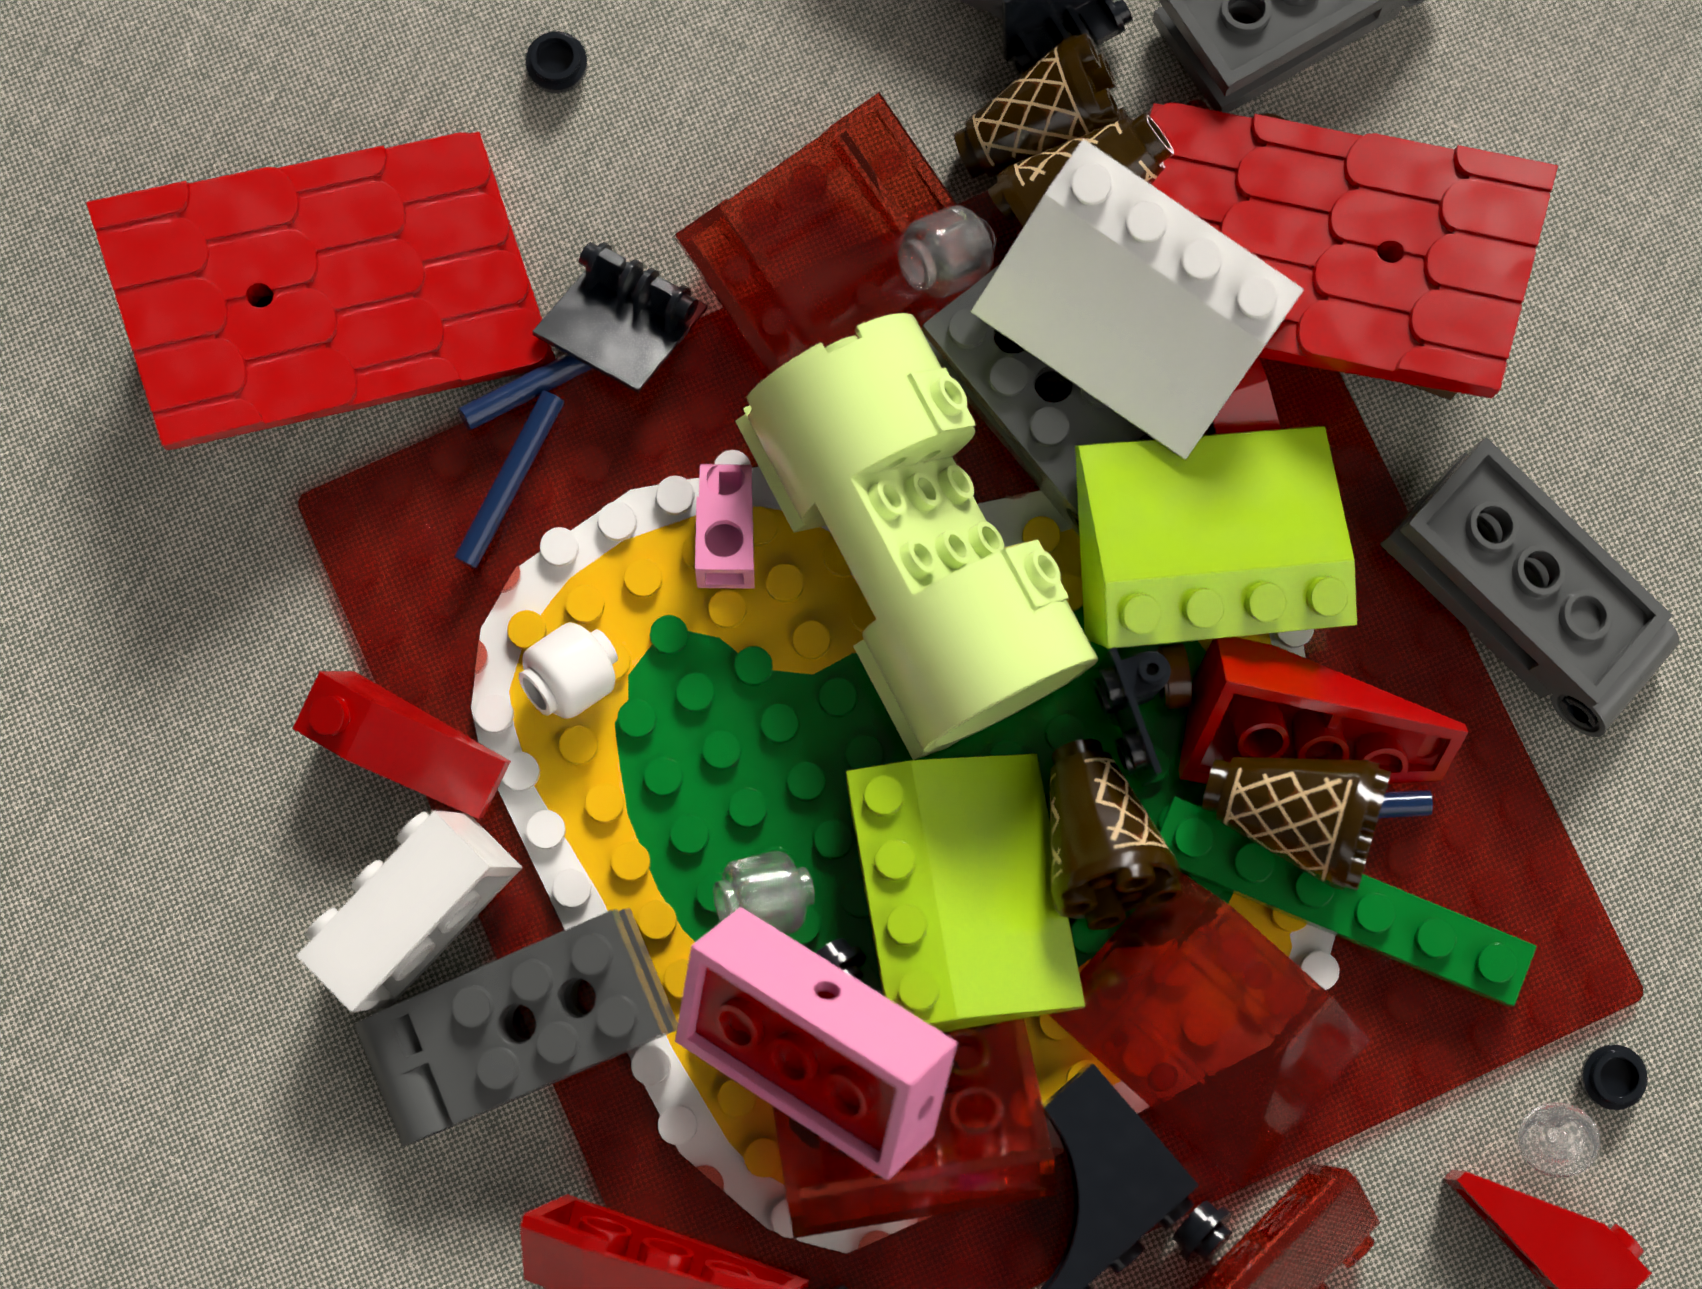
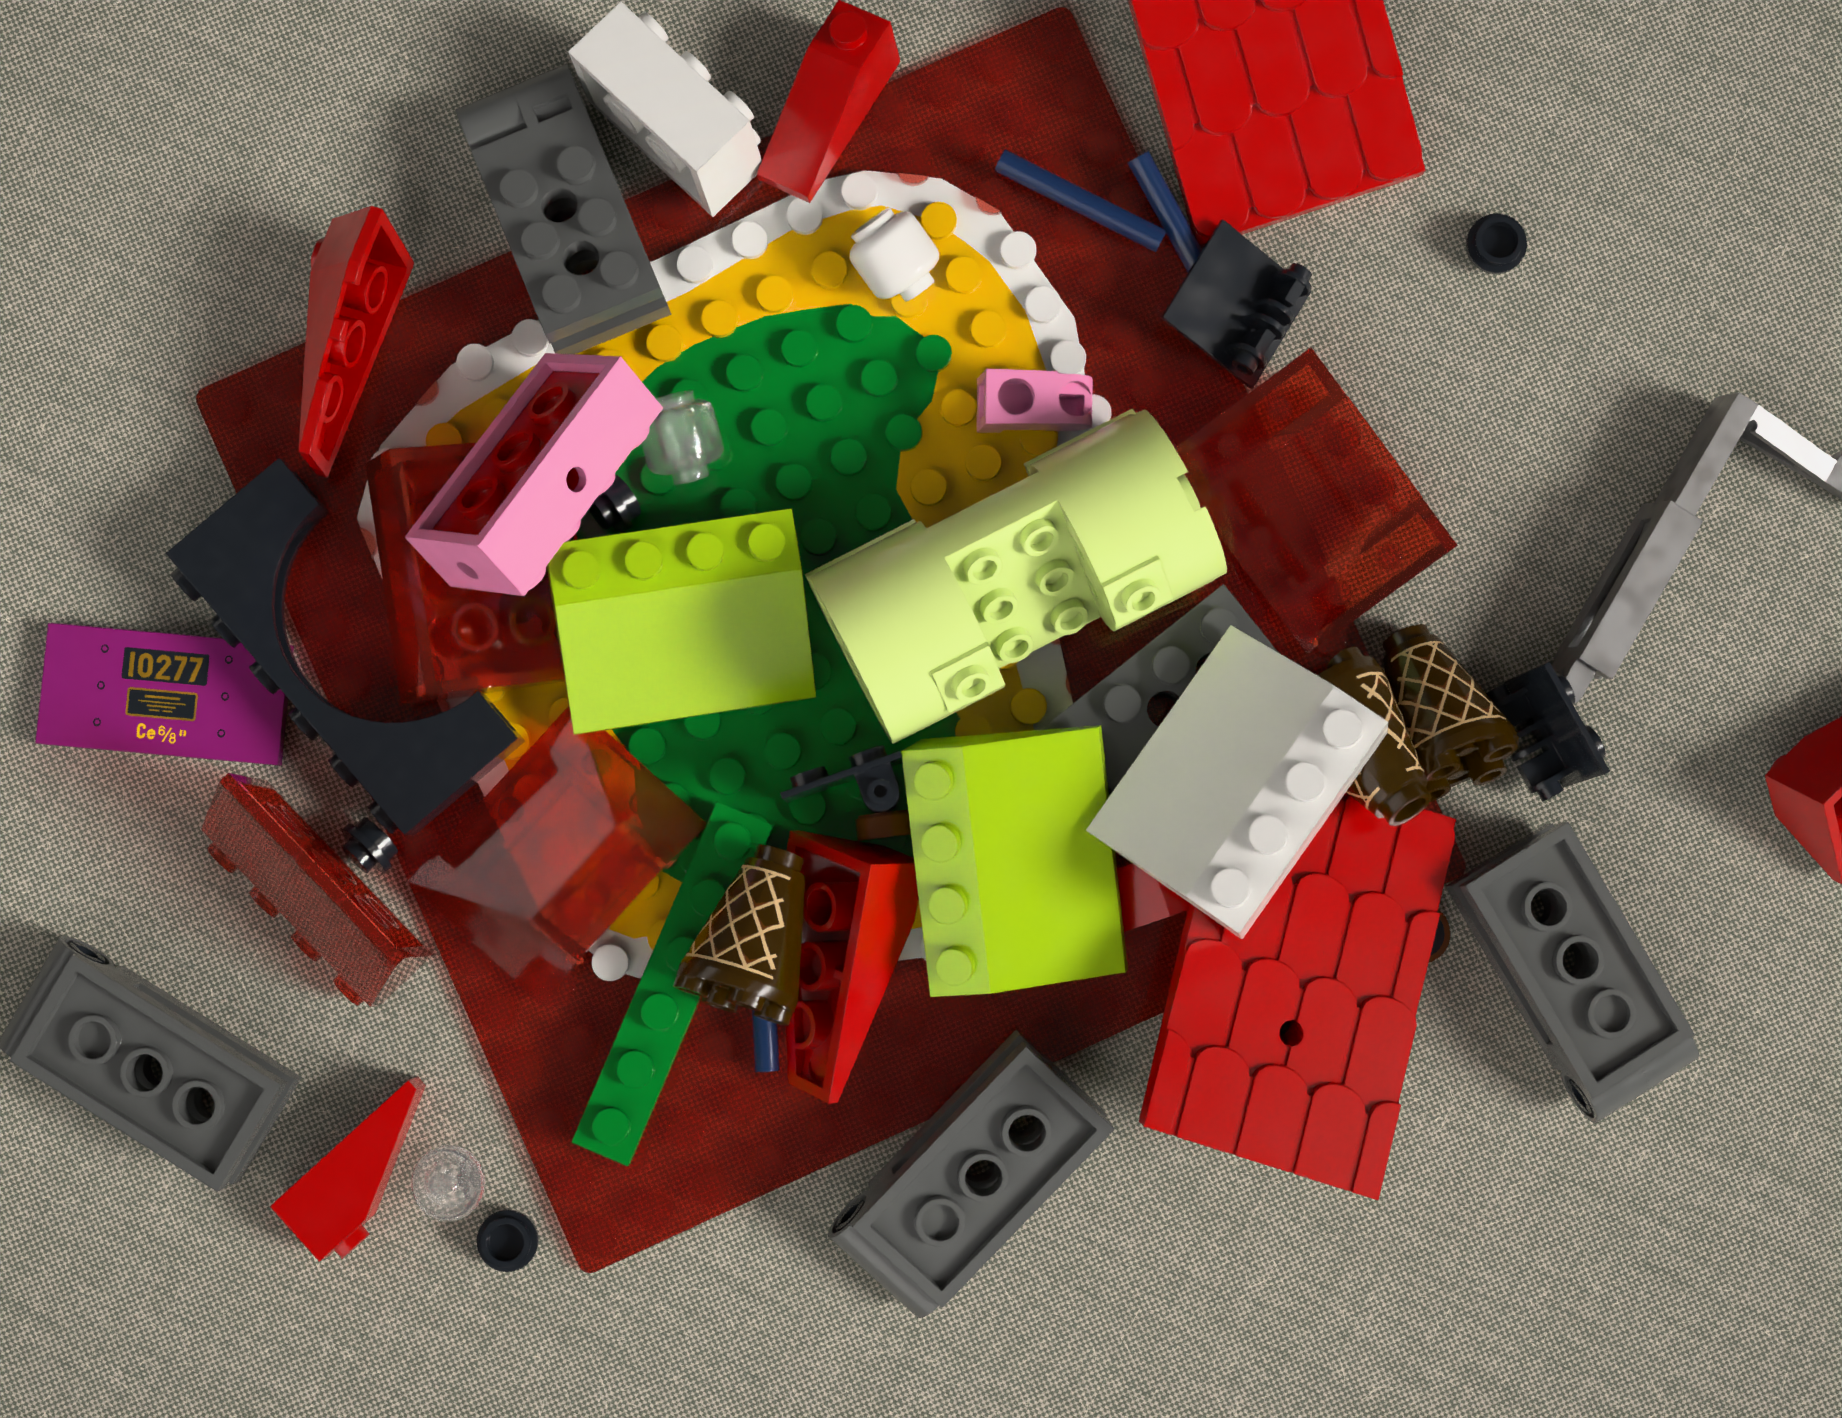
camera: 90 degrees right, 5 degrees up
(947, 251) = (1297, 610): clear head -> none
(1103, 841) = (728, 752): dark brown cone -> none

